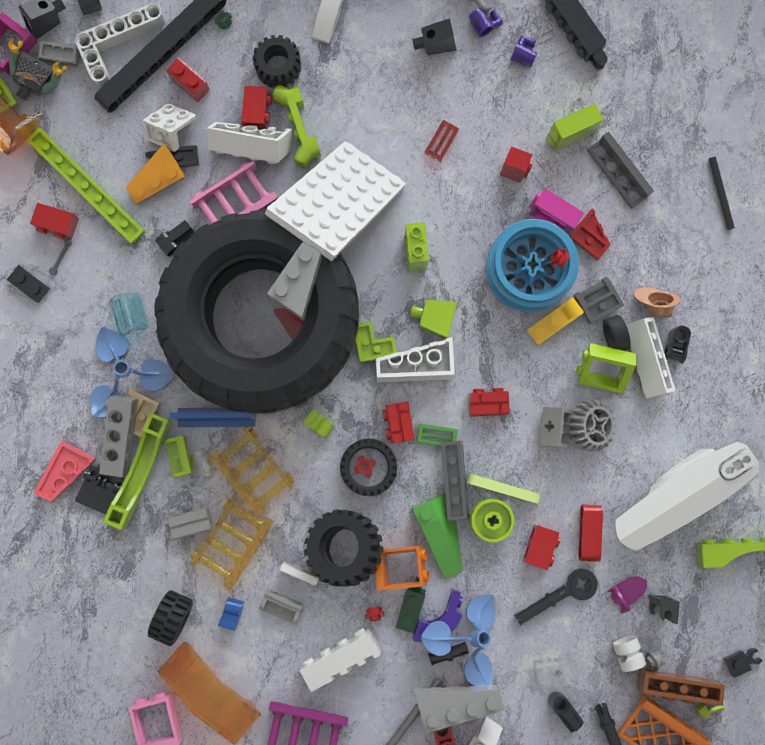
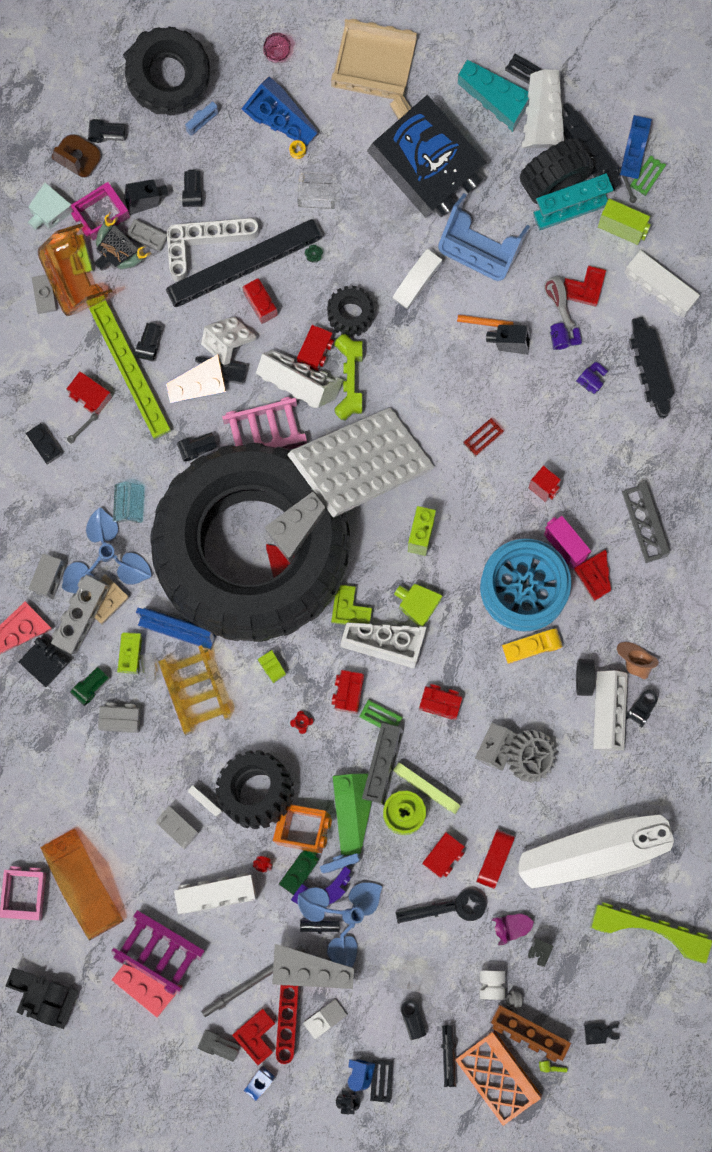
camera: 25 degrees right, 5 degrees down
(75, 409) = (47, 576): none -> light grey hinge
(95, 159) = (147, 347): none -> black piece
(128, 496) = (69, 674): lime arch -> none
(149, 505) = (86, 689): none -> dark green piece
(170, 618) = (71, 799): black tyre -> none
(231, 614) = (128, 817): blue leg -> none
(251, 543) = (154, 770): clear yellow fence -> none
(345, 467) = (307, 701): black tyre -> none
(401, 32) = (482, 321): none -> orange bar
(447, 587) = (340, 862): none -> medium blue plate
(559, 258) = (549, 585): red plate -> none
(574, 127) = (613, 467): lime brick -> none
(601, 306) = (582, 646): dark grey plate -> none
(608, 355) = (571, 696): lime window -> none

